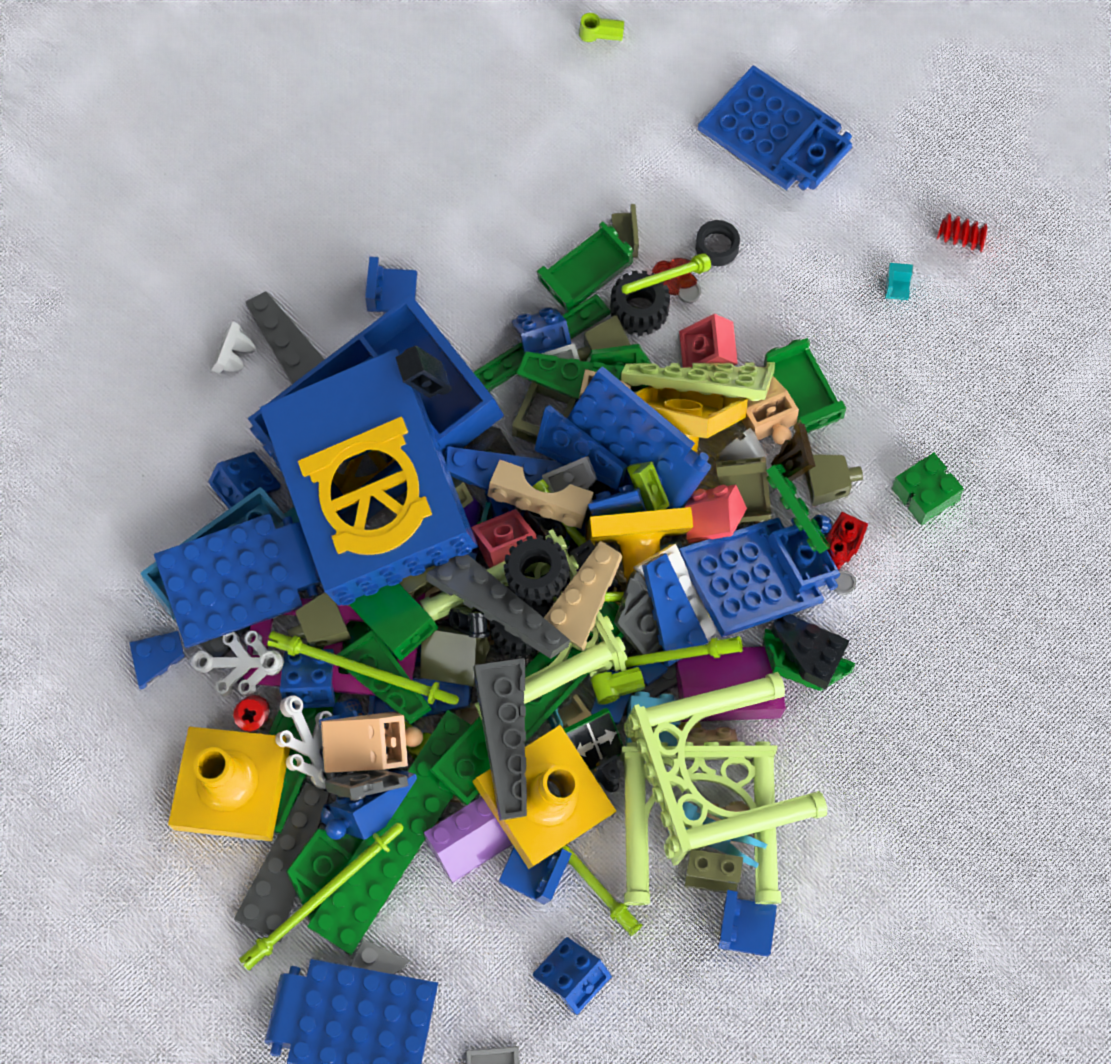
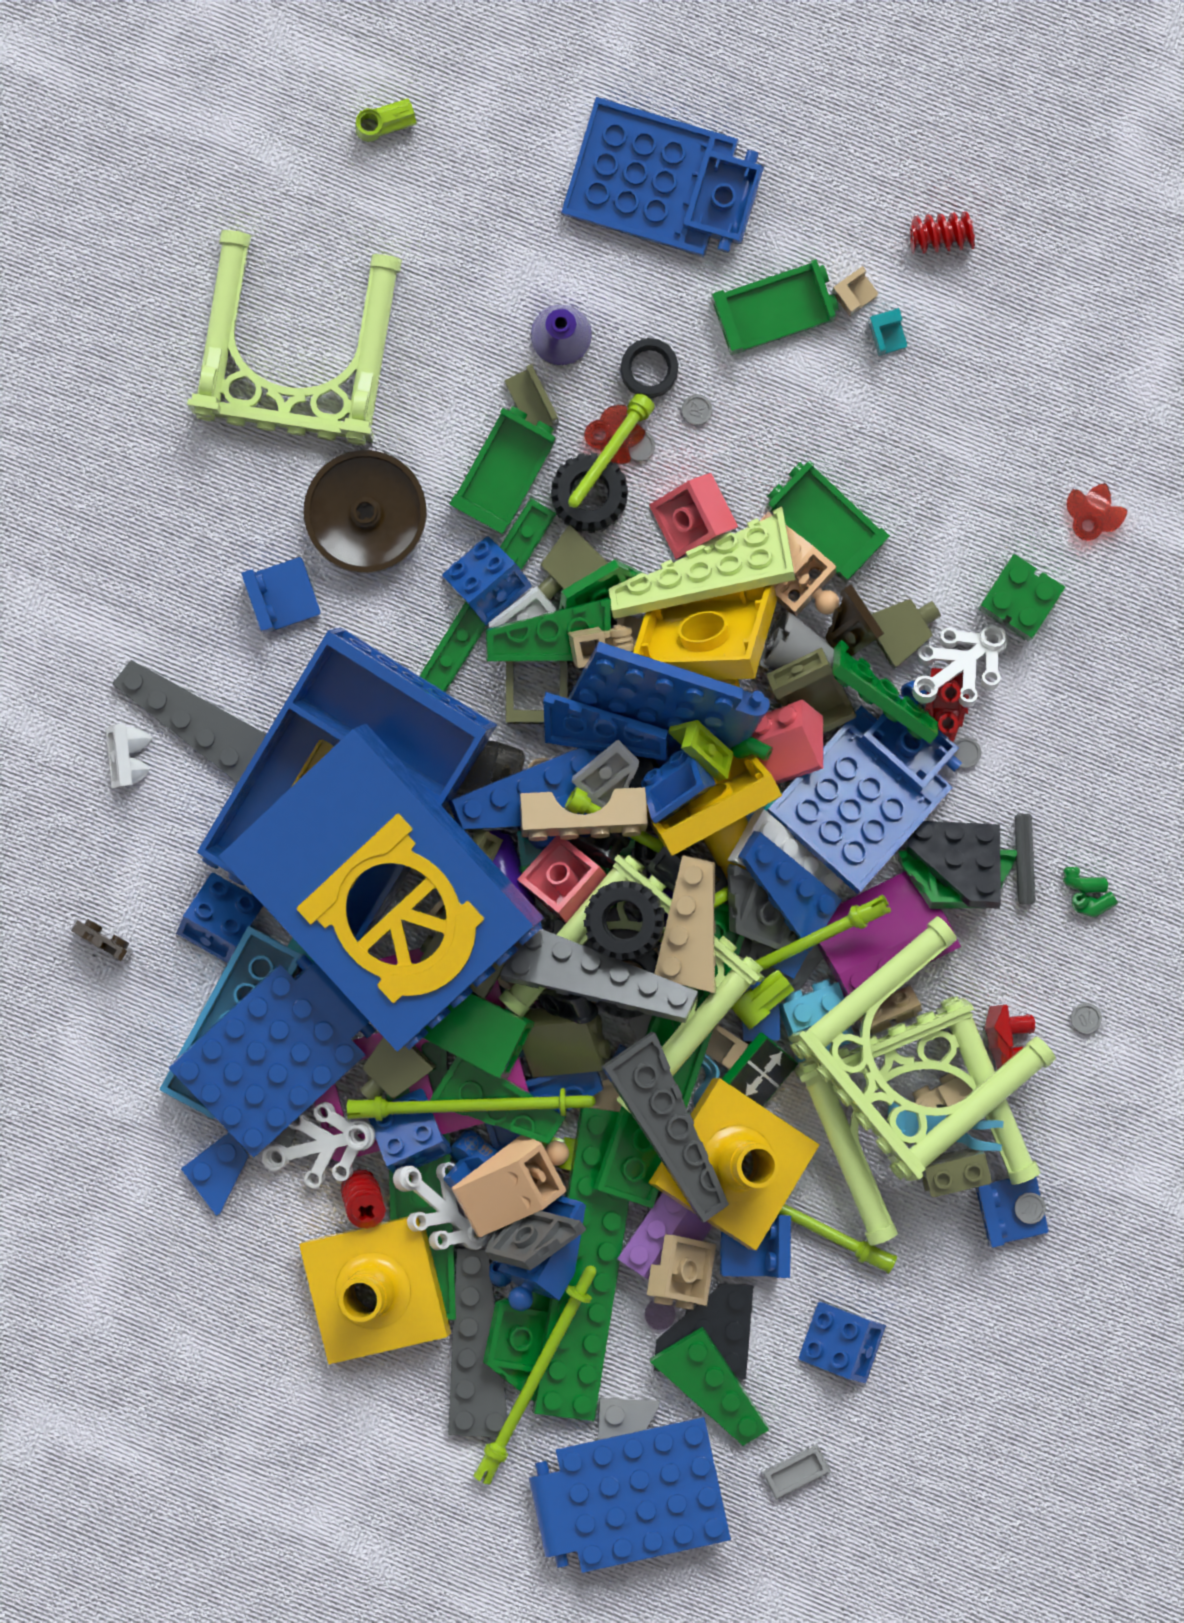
camera: 25 degrees left, 20 degrees up
(153, 463) = (92, 933): none -> dark brown wing
(423, 372) = (395, 744): black hinge -> none
(438, 896) = (659, 1315): none -> clear purple piece
(453, 957) = (708, 1380): none -> green wing
(469, 864) = (682, 1273): none -> tan plate
(470, 928) = (725, 1321): none -> black plate
(475, 255) = (365, 511): none -> dark brown dish
(511, 176) = (221, 339): none -> yellowish green arch
(608, 773) = (792, 1104): black hinge -> none
(664, 196) = (561, 345): none -> dark purple cone
(685, 502) = (752, 747): none -> green arm
(740, 283) = (697, 409): none -> light grey piece
(762, 930) = (1030, 1208): none -> light grey piece
(793, 784) = (1001, 1027): none -> red connector
(823, 239) = (775, 307): none -> green panel
(859, 673) = (1025, 859): none -> dark grey axle
(862, 808) = (1086, 1018): none -> light grey piece
(884, 247) = (854, 291): none -> tan panel
(891, 701) = (1084, 884): none -> green arm
(892, 511) = (962, 661): none -> white plant
(897, 727) = (1091, 906): none -> green arm
(1006, 453) = (1095, 508): none -> clear red plate

